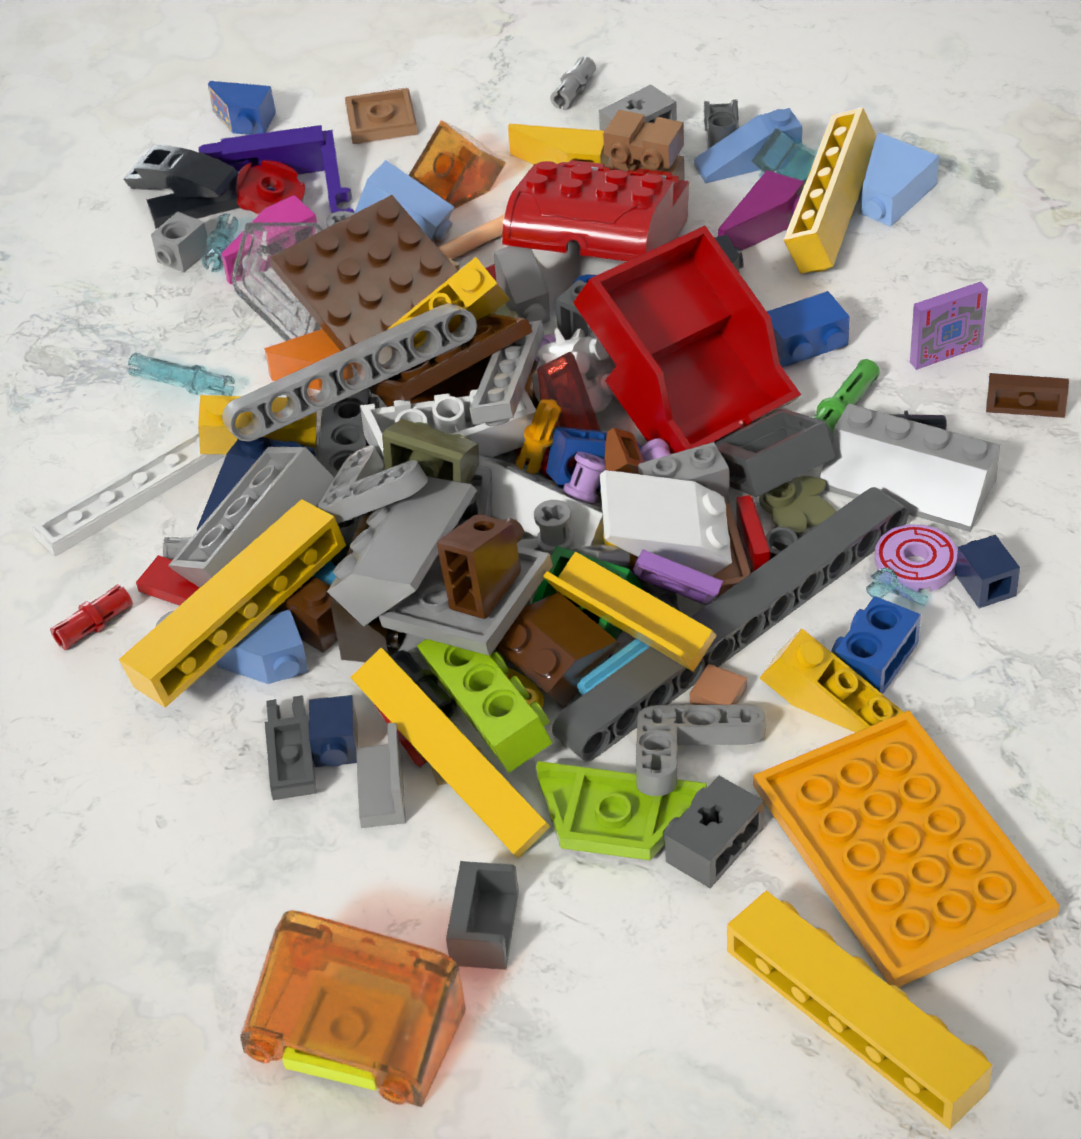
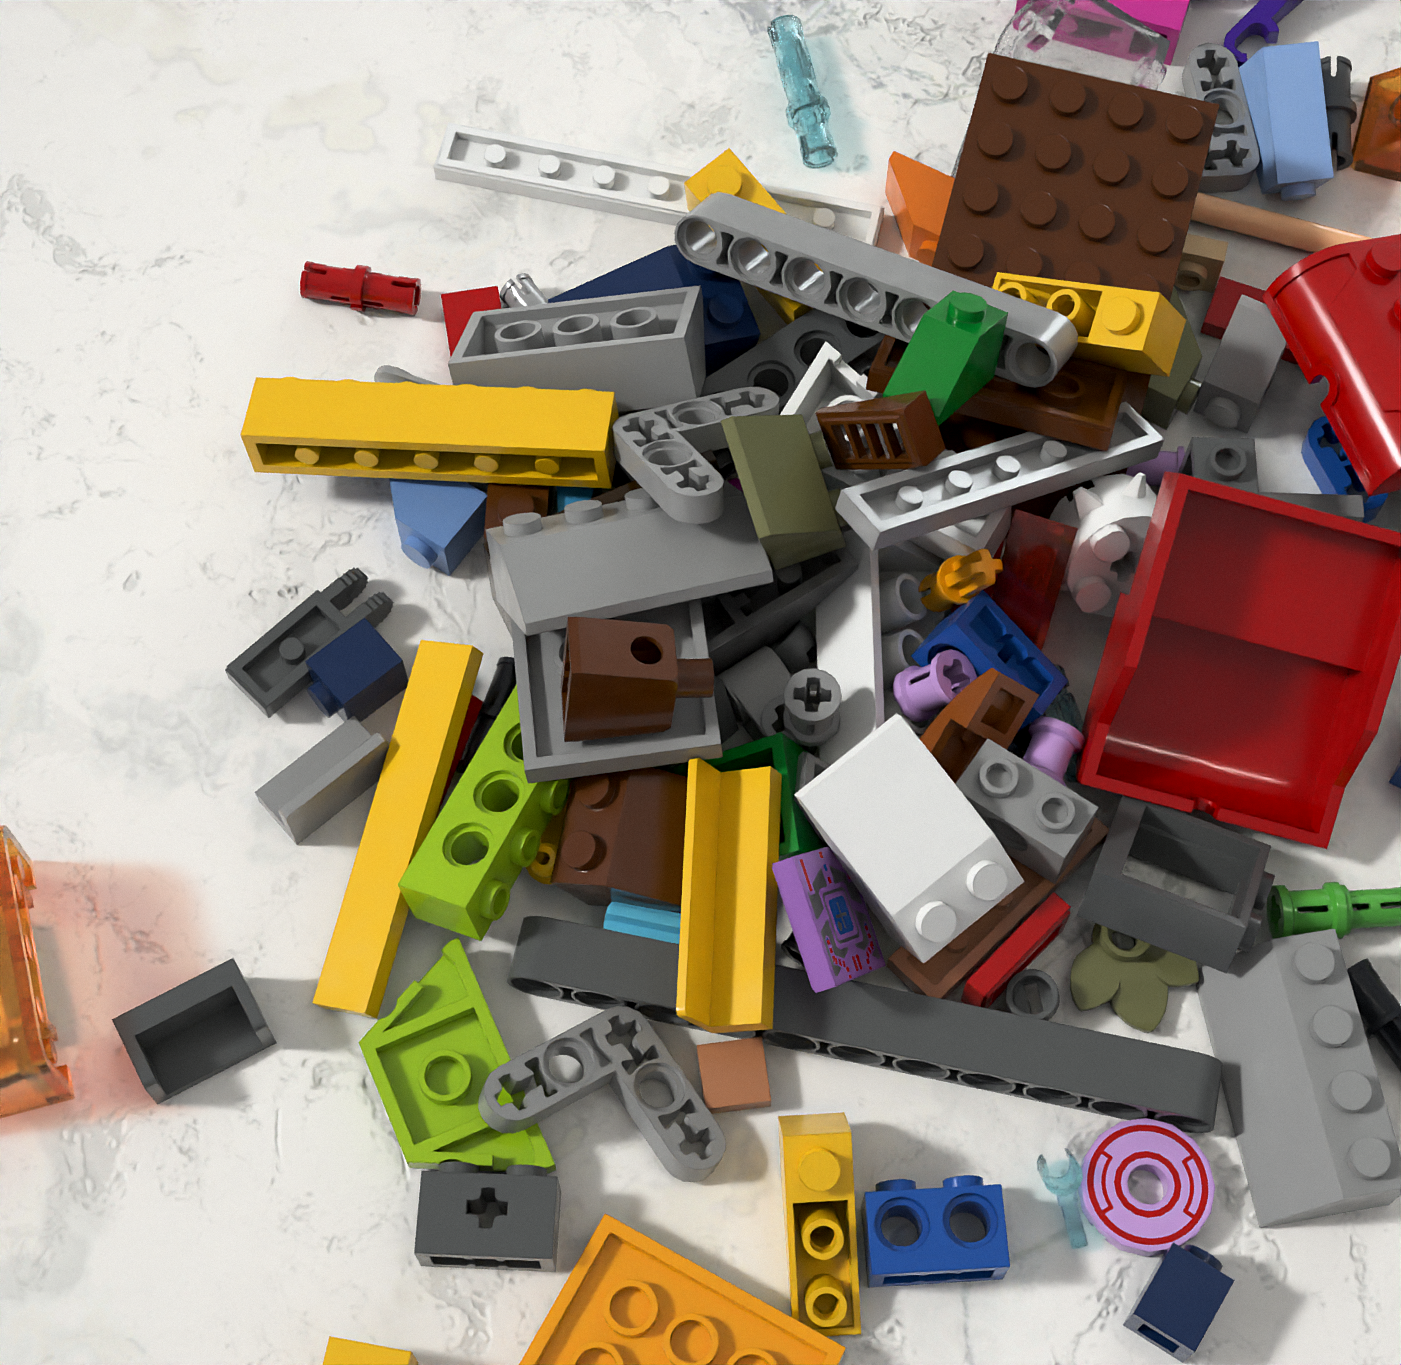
camera: 50 degrees right, 20 degrees up
(430, 344) = (951, 353): none -> green slope
(440, 376) = (914, 421): none -> reddish brown slope

